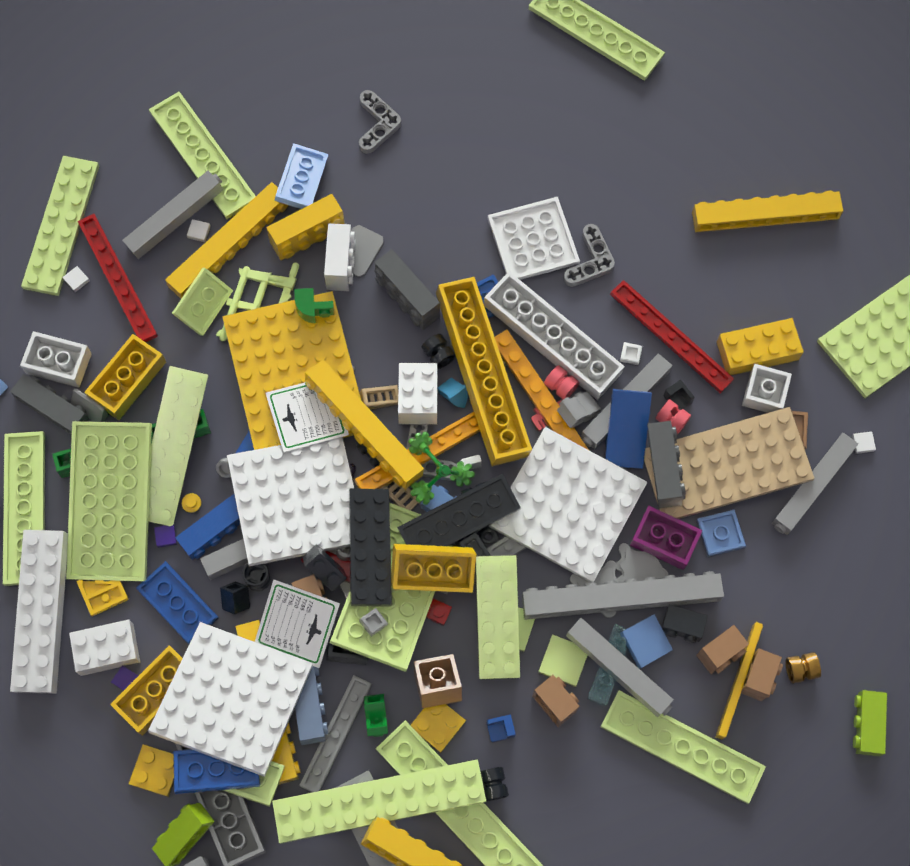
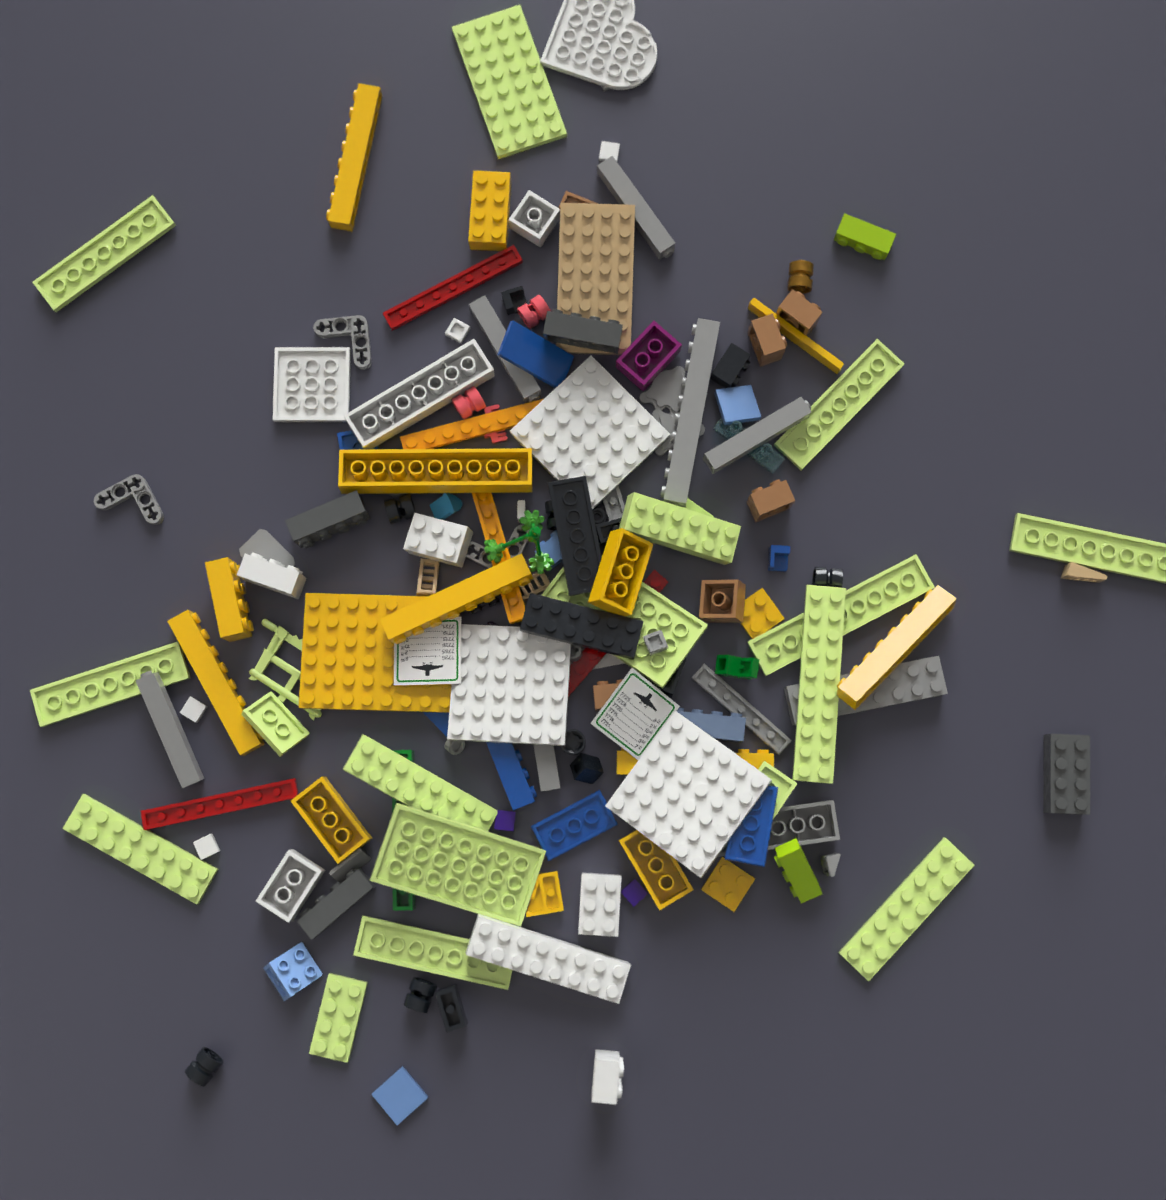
camera: 70 degrees left, 10 degrees up
(191, 503) = (479, 787): yellow plate -> none
(301, 177) = (172, 589): light blue plate -> none
(308, 309) = (317, 620): green brick -> none
(324, 567) = (587, 674): black brick -> none
(563, 660) = (732, 484): yellowish green tile -> none
(578, 409) = (500, 395): light grey brick -> none
(721, 533) = (656, 306): medium blue tile -> none

